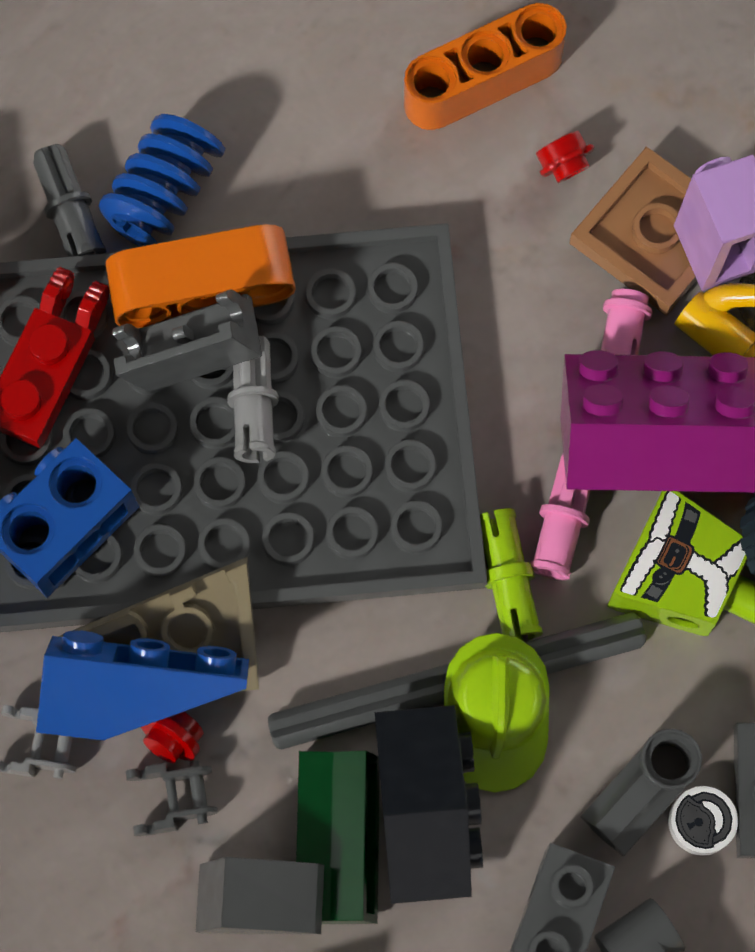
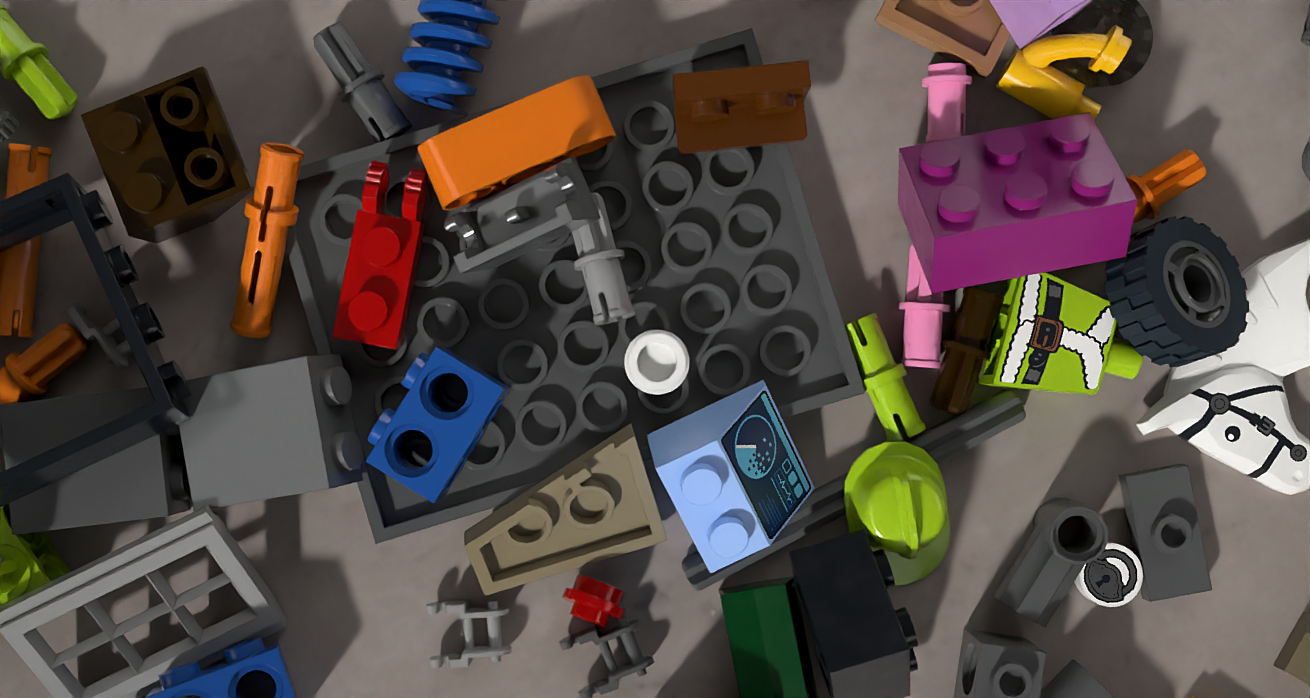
camera: 15 degrees left, 15 degrees up
(113, 688) = (540, 577): blue slope -> none
(286, 508) = (656, 362): none -> white tile
(337, 629) = (732, 474): none -> light blue slope
(418, 282) = (741, 106): none -> reddish brown bracket
(597, 566) = (965, 350): none -> dark brown axle

